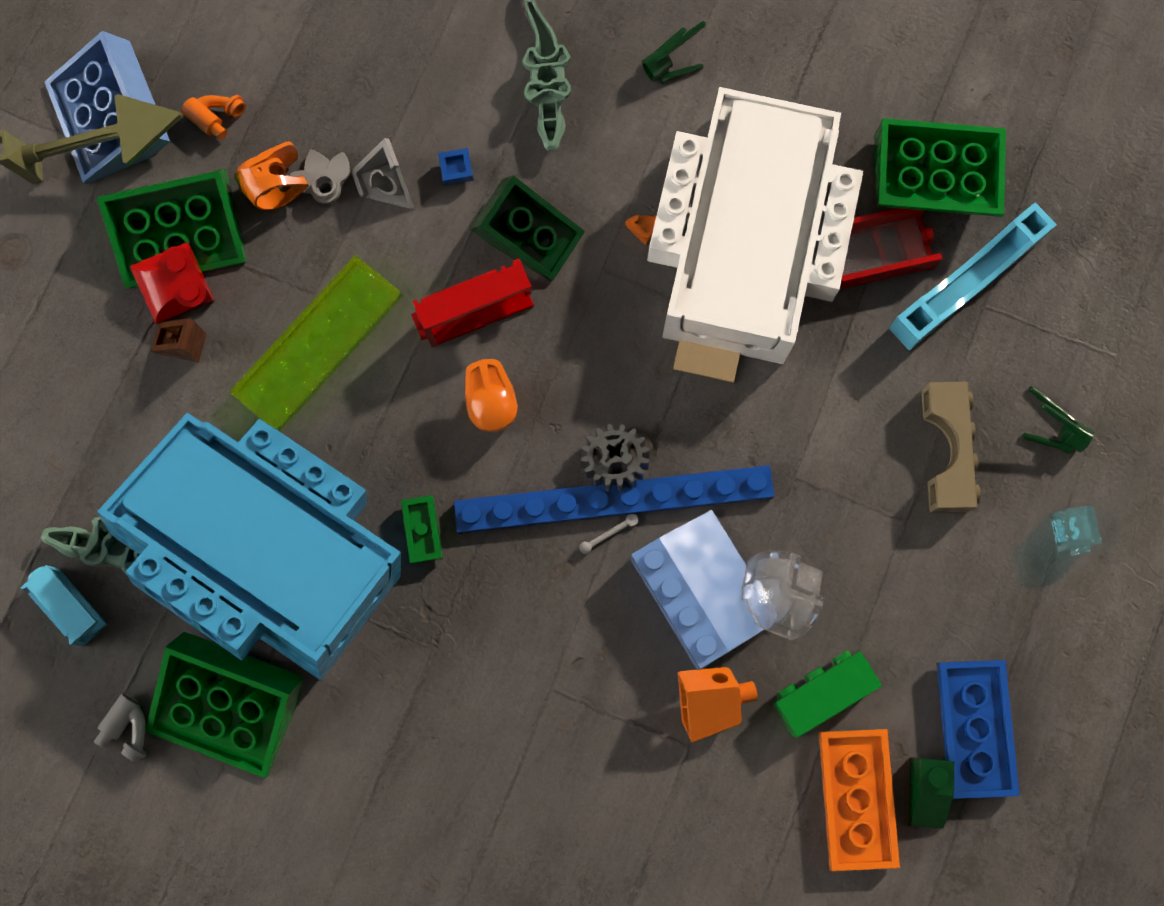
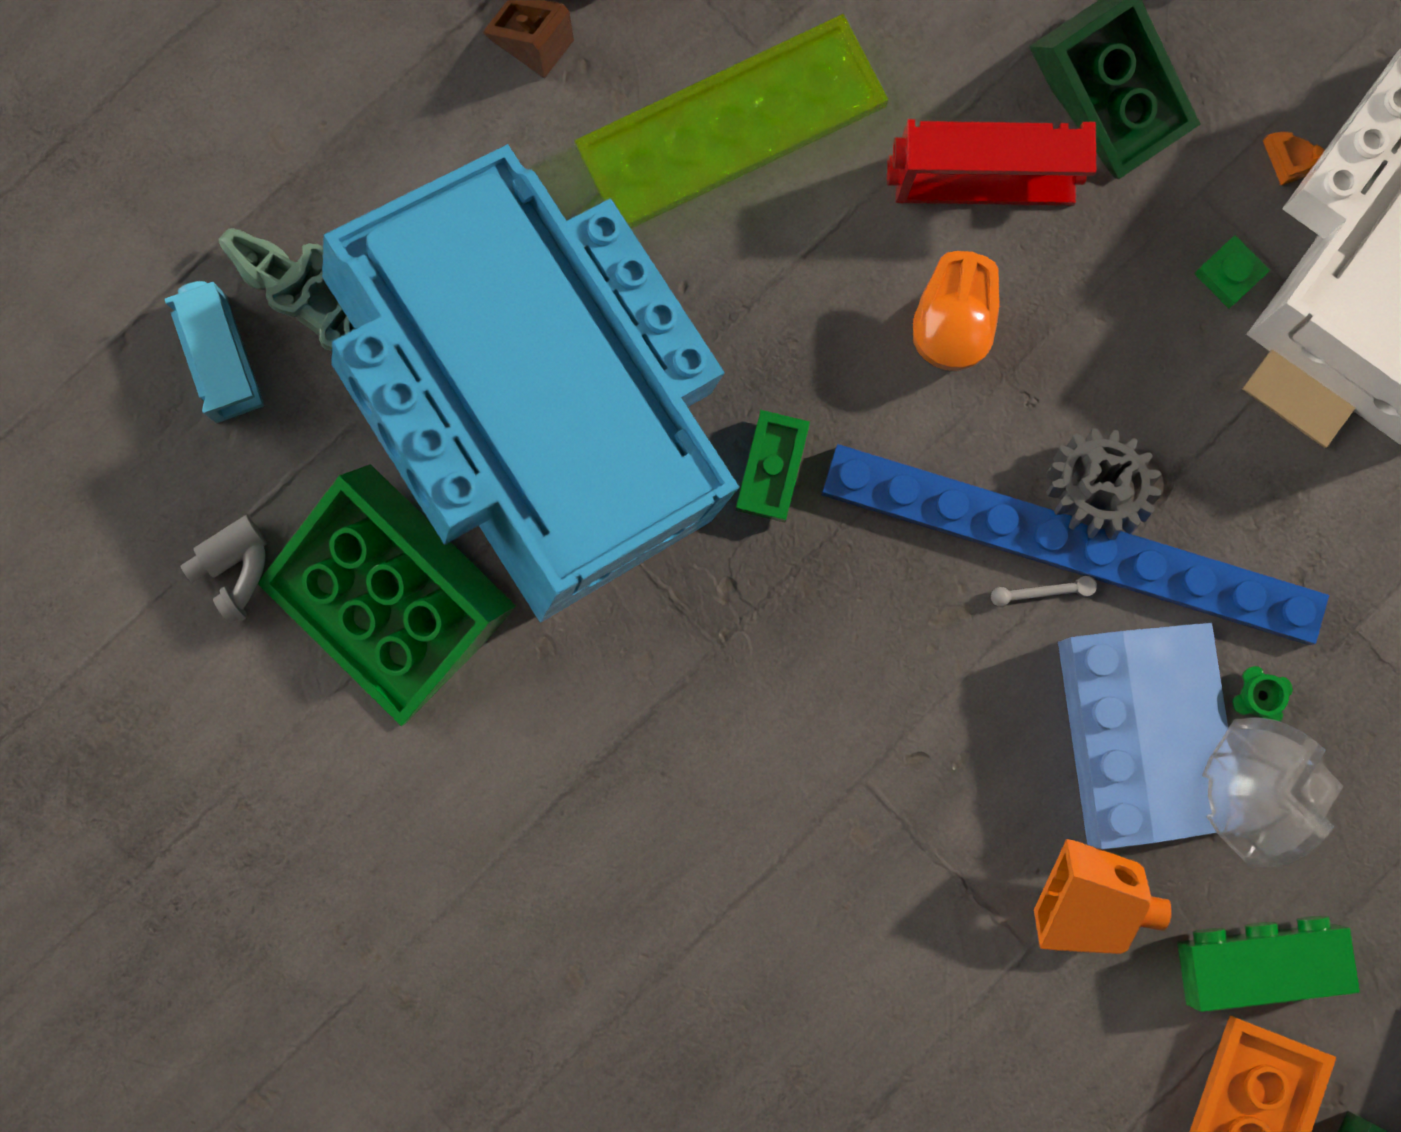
camera: 20 degrees right, 5 degrees up
(638, 306) = (1232, 271): none -> green plate
(764, 532) = (1277, 690): none -> green plate

